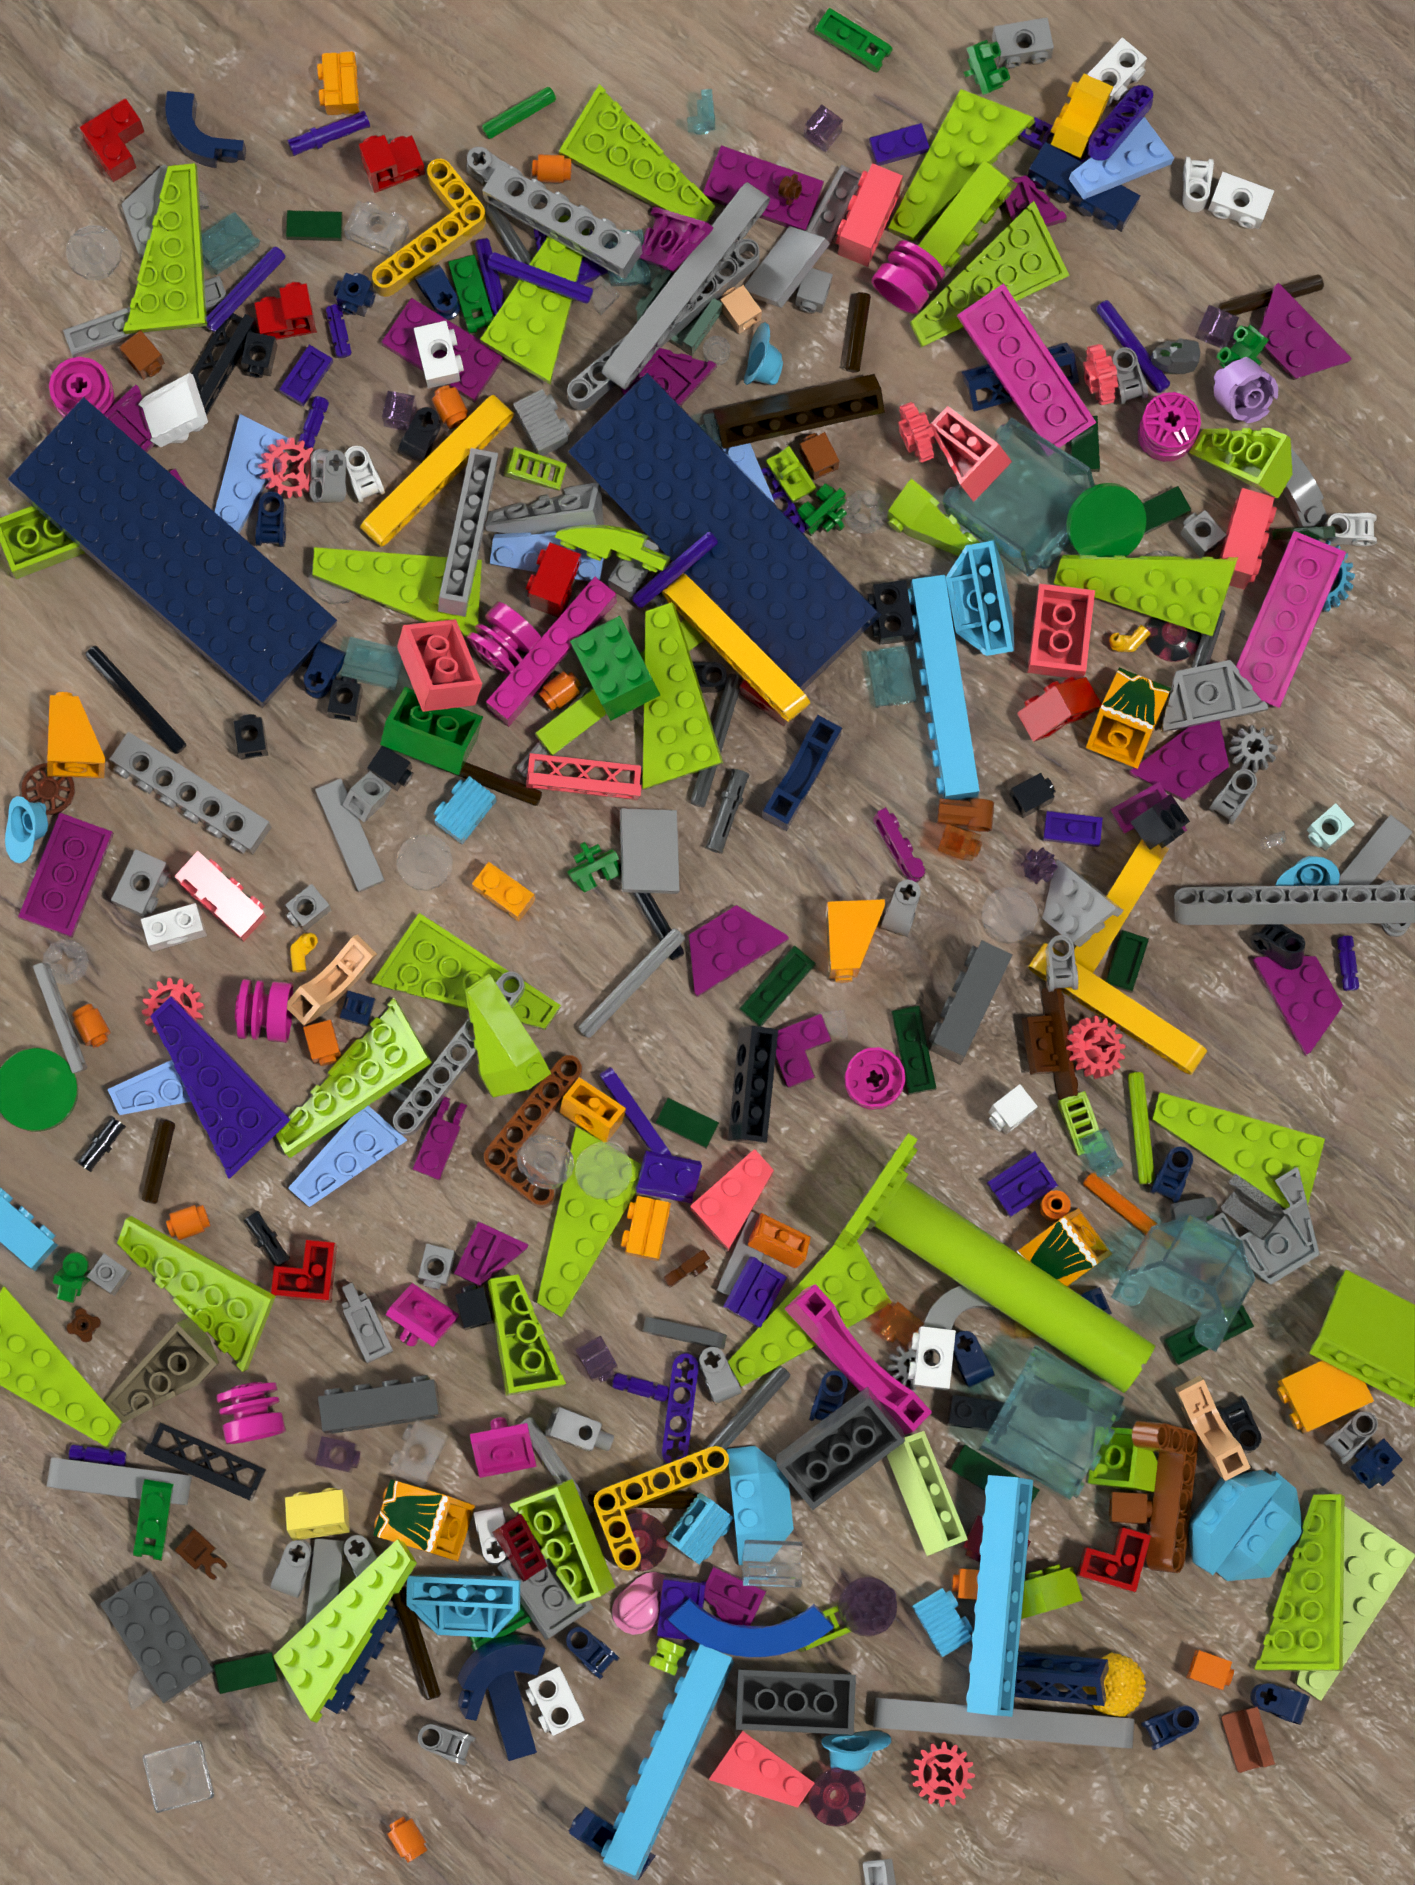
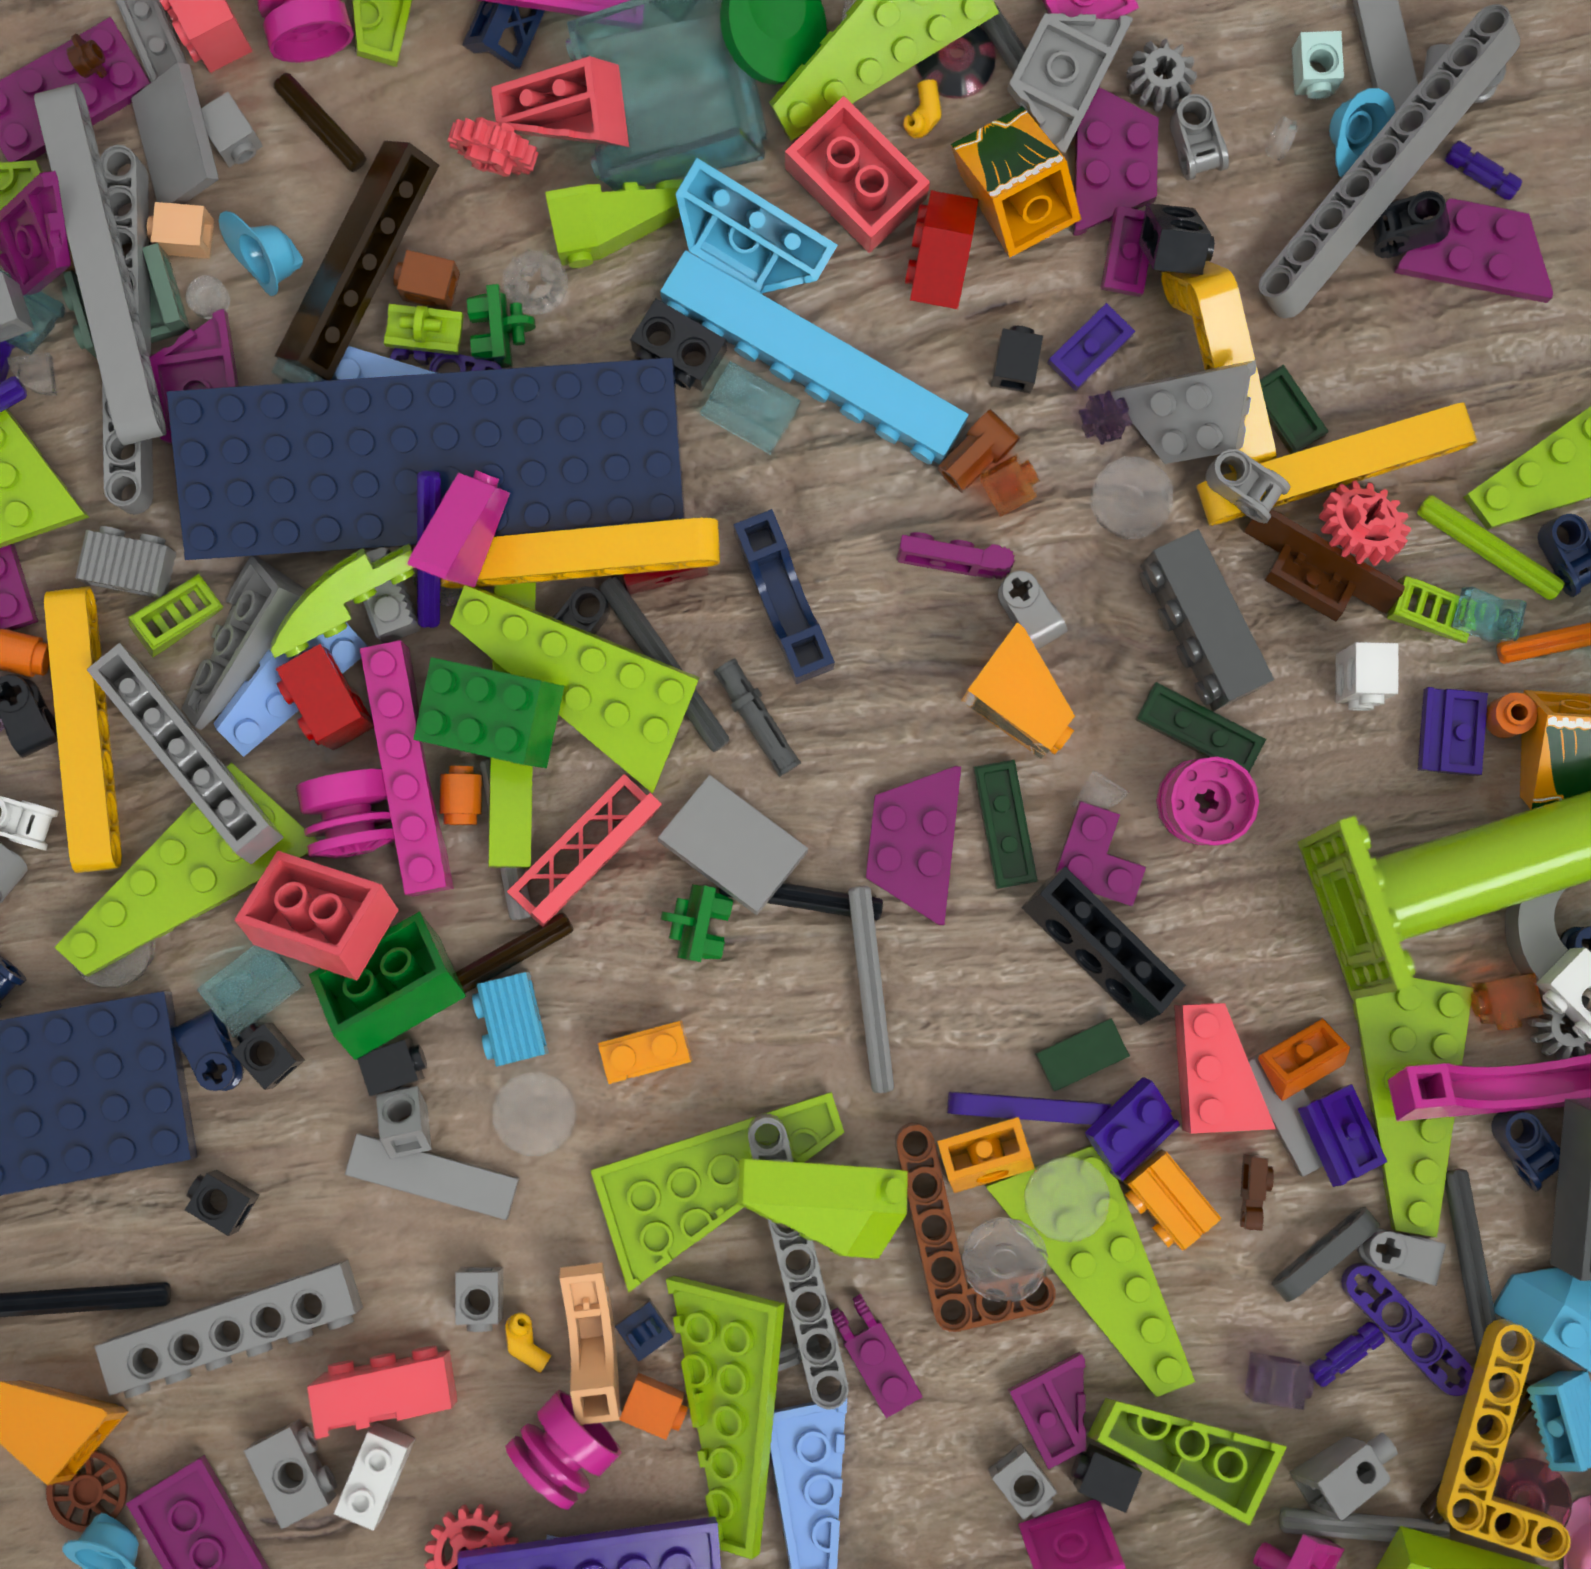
camera: 50 degrees left, 5 degrees up
(697, 577) = (461, 529): none -> dark pink slope

